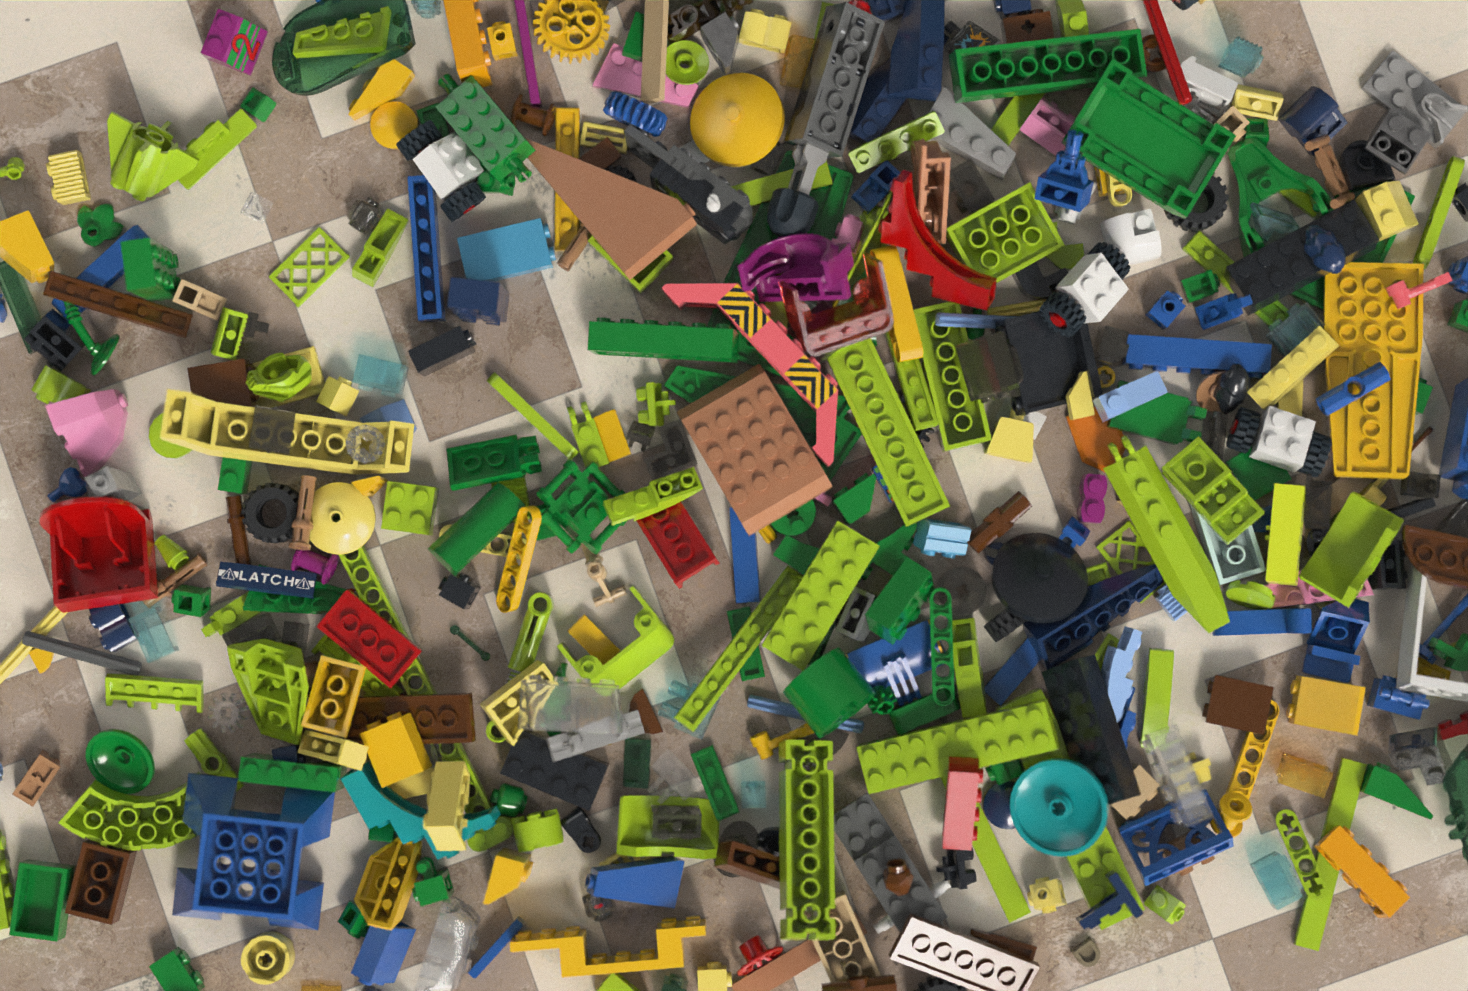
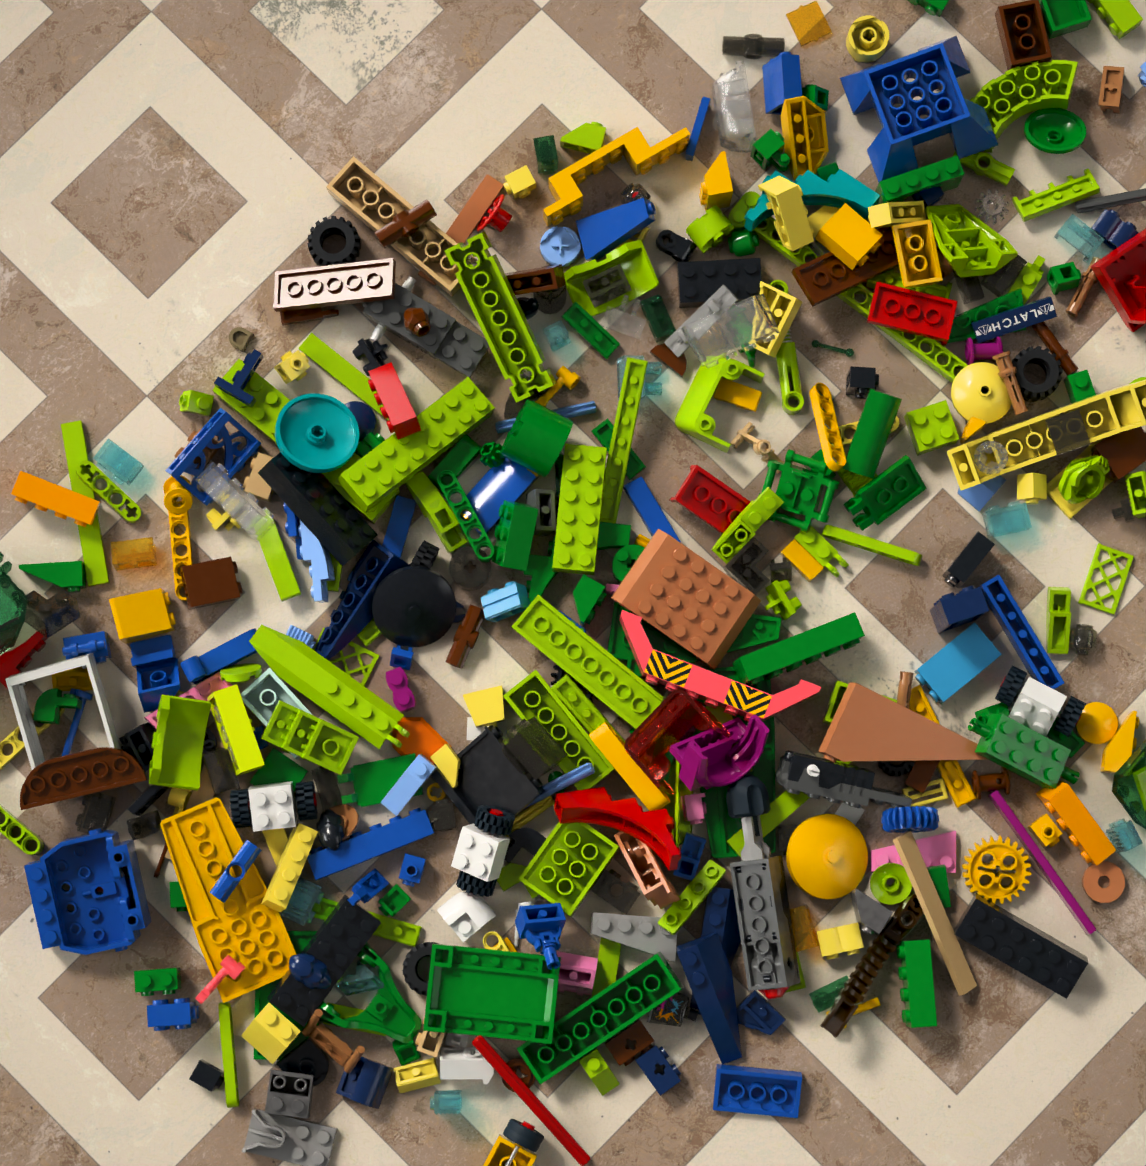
camera: 150 degrees right, 5 degrees down
(171, 552) = (1096, 306): lime cone -> none
(703, 889) = (560, 246): none -> light blue tile
(908, 696) = (472, 468): tile -> none

